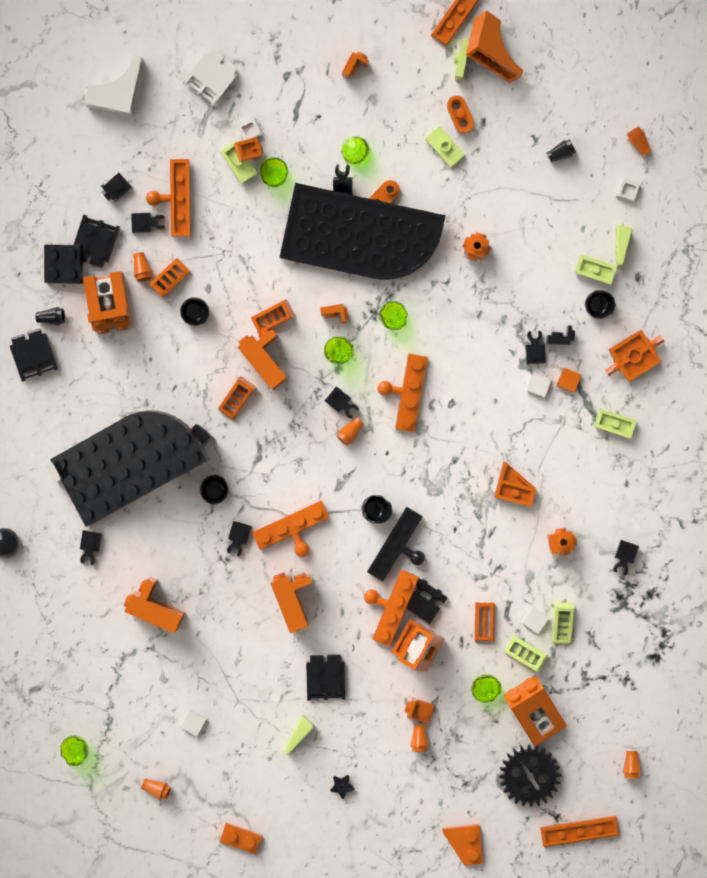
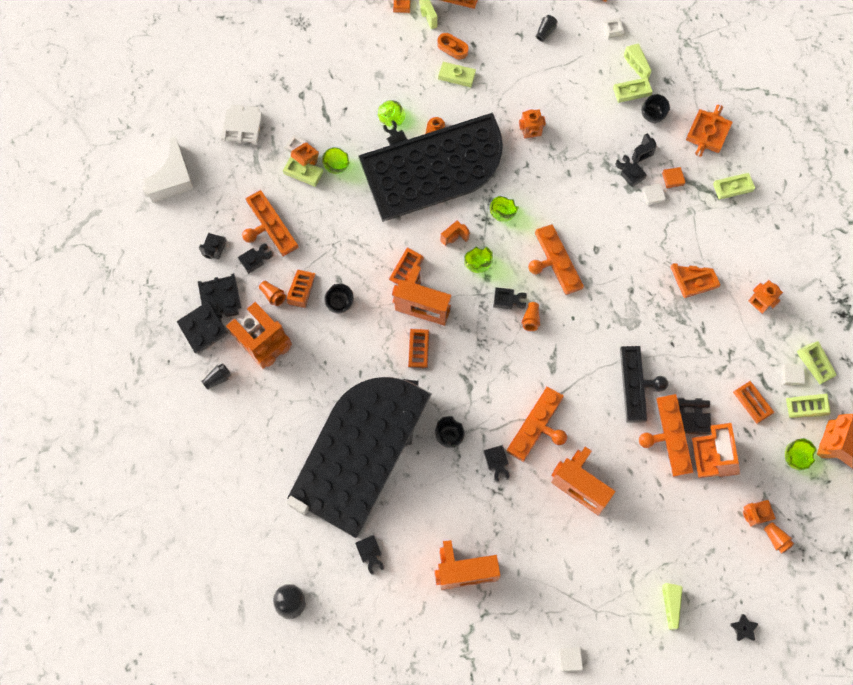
camera: 30 degrees left, 20 degrees down
(32, 354) = (218, 417): black plate -> none
(325, 677) = (658, 537): black plate -> none
(351, 66) = (349, 52): orange bracket -> none
(376, 509) = (598, 363): black hair -> none
(625, 553) = (822, 276): black plate -> none

